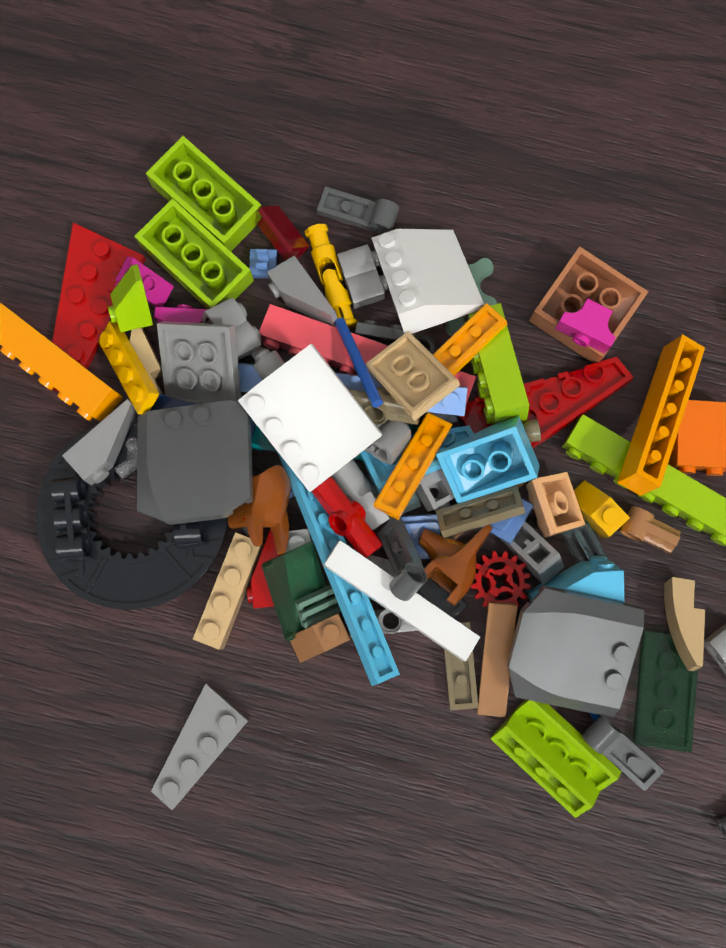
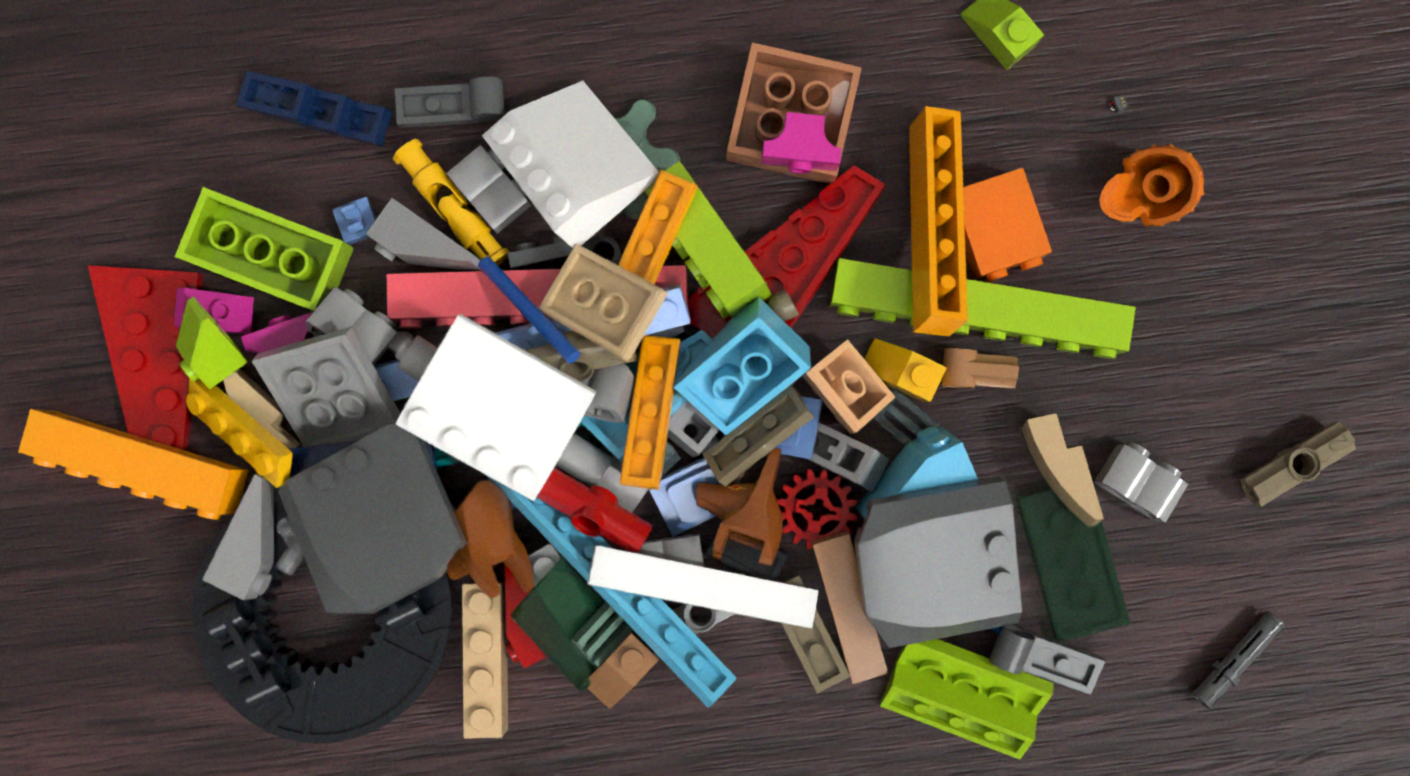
camera: 20 degrees left, 5 degrees up
(205, 193) = (244, 162): lime brick -> none
(265, 179) = (314, 108): none -> dark blue slope
(281, 232) = (364, 172): dark red panel -> none
(404, 560) = (686, 535): dark grey plate -> none

